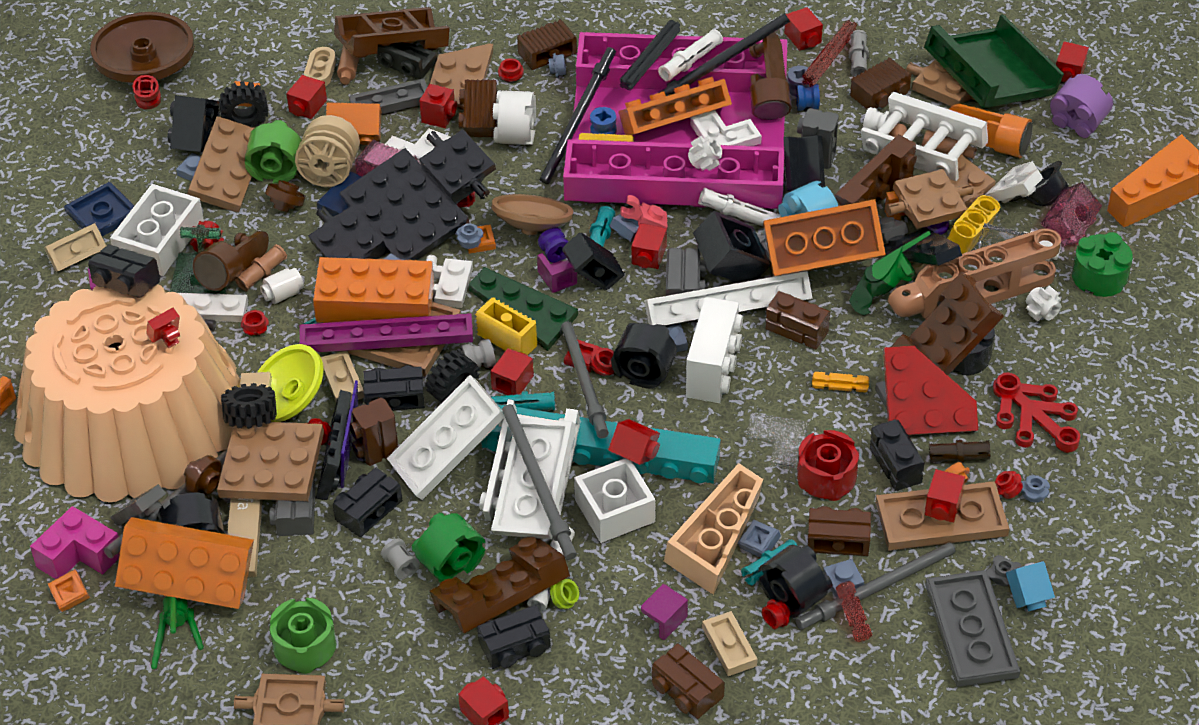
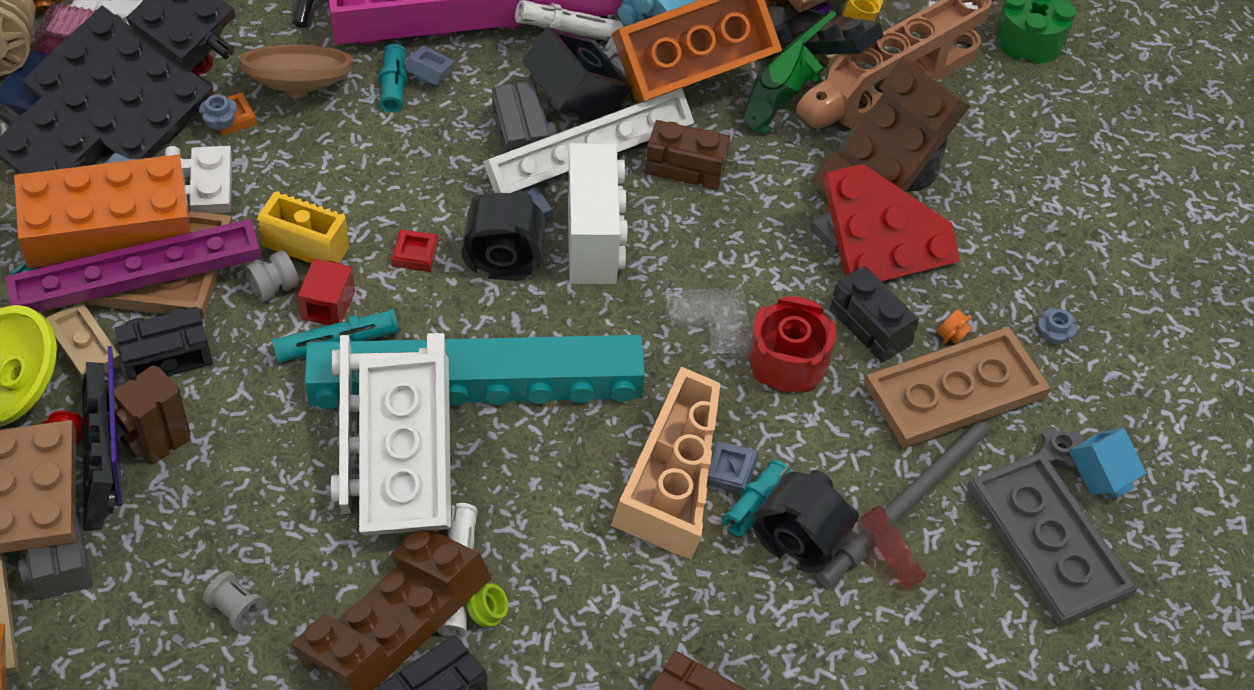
camera: 20 degrees left, 5 degrees up
(367, 501) = (163, 522): black brick -> none
(446, 437) = (259, 405): white plate -> none
(449, 546) = (304, 571): green brick -> none
(450, 374) = (245, 315): black tyre -> none
(536, 305) = (358, 199): dark green wing -> none
(552, 243) = (338, 106): dark purple wheel -> none
(556, 275) = (351, 145): magenta panel -> none
(559, 527) = (462, 513): dark grey bar -> none
(593, 261) = (398, 119): black brick -> none
(595, 411) = (462, 328): dark grey bar -> none
(602, 355) = (446, 254): red plate -> none
(614, 499) = (521, 450): white brick -> none
(635, 441) = (533, 363): red brick -> none
(644, 213) = (453, 49): coral plate -> none
(649, 246) = (464, 88): red brick -> none
(667, 609) = (638, 599): magenta panel -> none
(729, 643) = (740, 631): tan plate -> none
(776, 614) = (788, 573): red plate -> none
(839, 531) = (834, 435): reddish brown brick -> none
(840, 382) = (765, 227): light orange axle -> none
(843, 572) = (862, 494): sand blue plate -> none
(944, 495) = (960, 360): red brick -> none
(959, 451) = (948, 293): dark brown pin -> none
(1009, 484) = (1031, 331): red plate -> none
(1035, 409) = (981, 200): red plant -> none
(1043, 303) = (983, 82): white gear -> none

